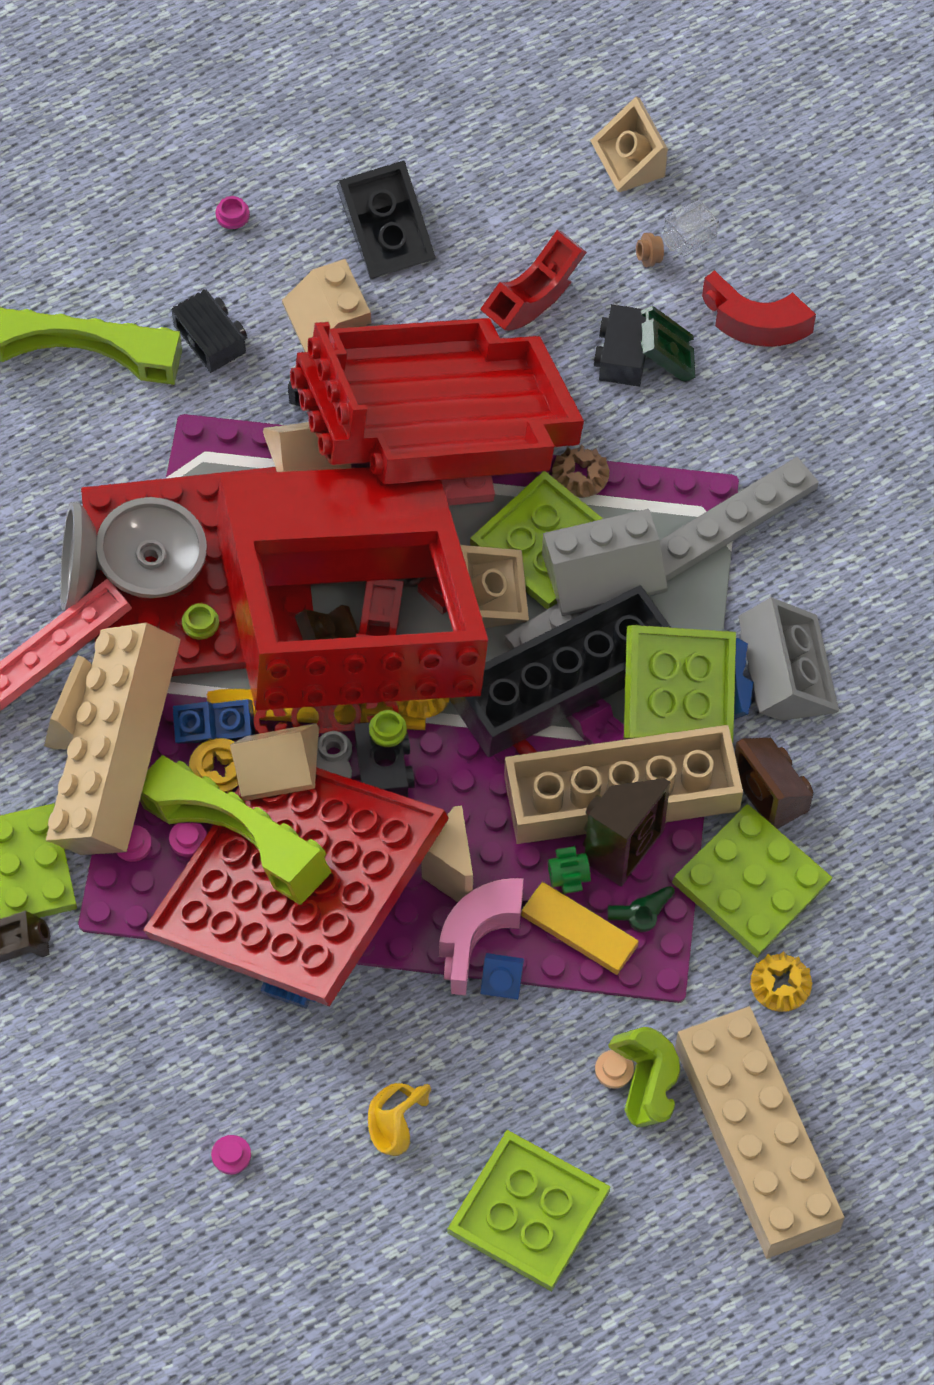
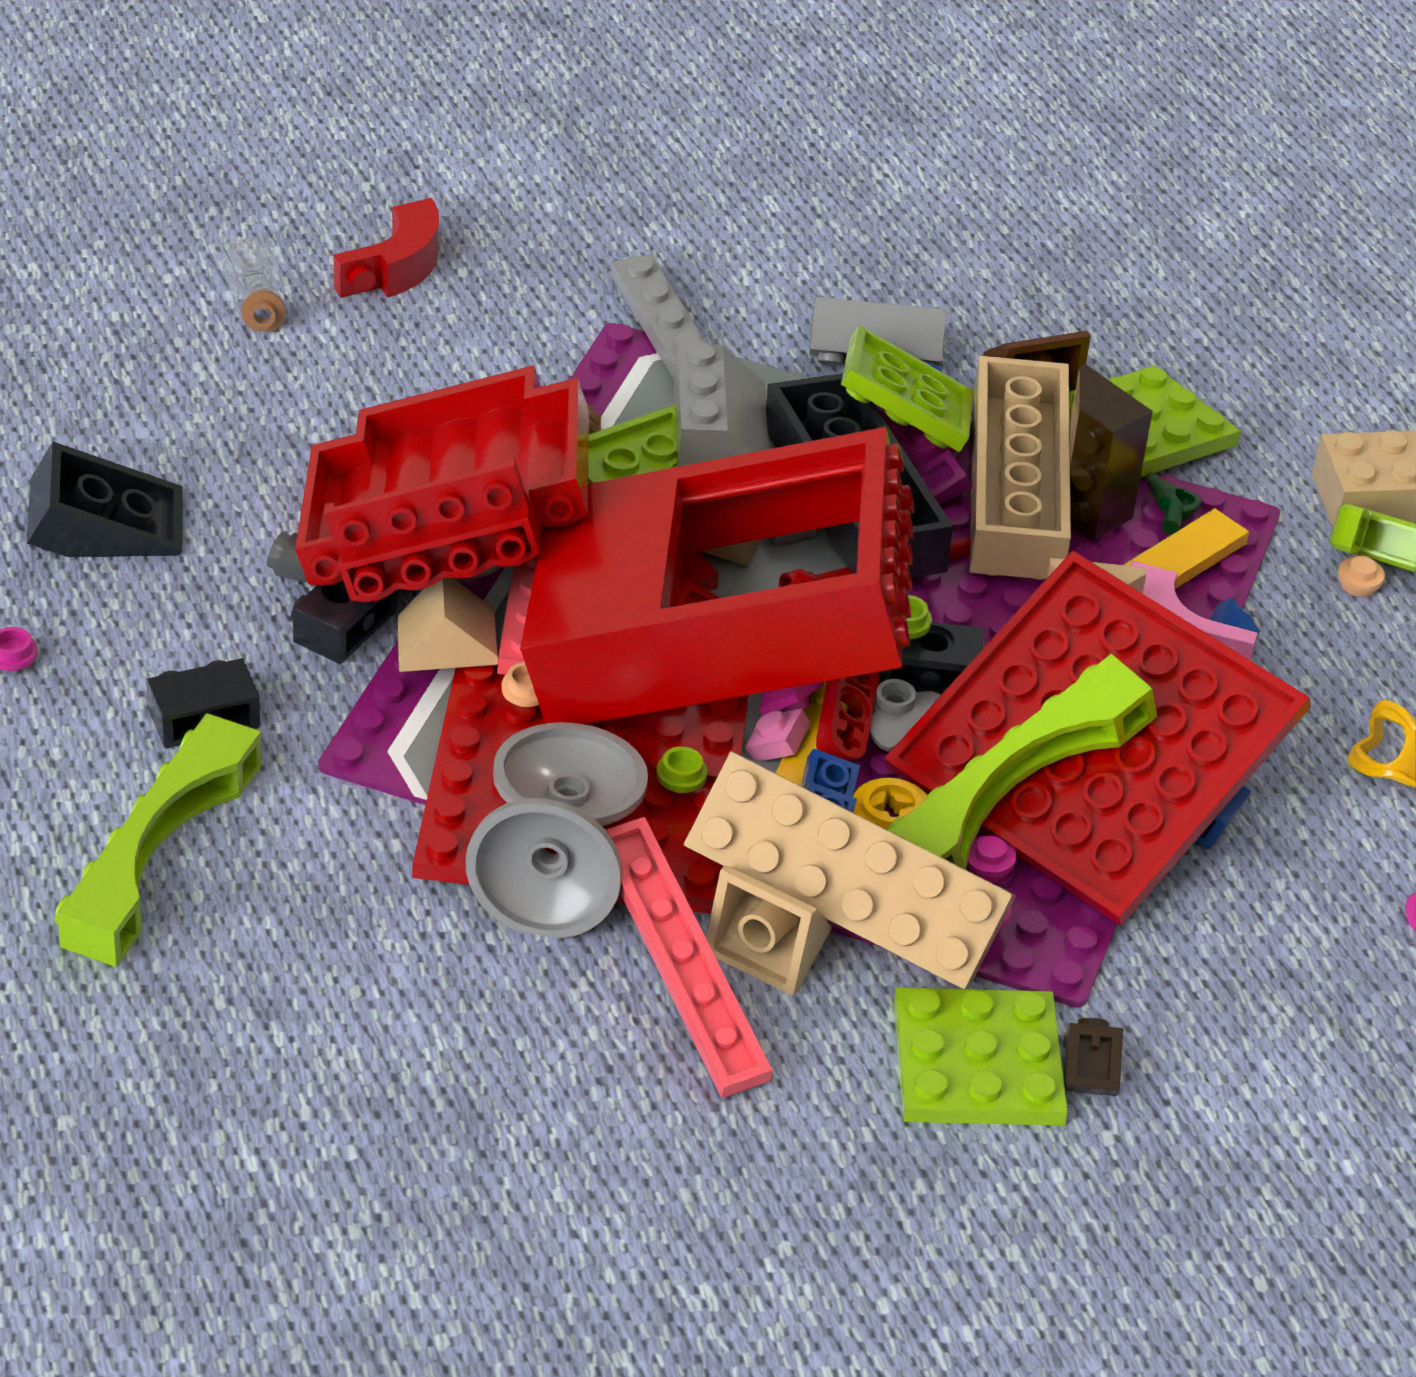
camera: 80 degrees left, 20 degrees down
(276, 762) = (917, 727): tan slope -> none
(326, 296) = (221, 585): tan slope -> none
(540, 286) = (271, 398): red arch -> none
(568, 870) = (1118, 535): green gear -> none
(621, 355) = (395, 355): black brick -> none
(631, 148) = (107, 284): tan slope -> none
(668, 344) = (425, 314): dark green plate -> none
(785, 997) = (1271, 443): yellow gear -> none

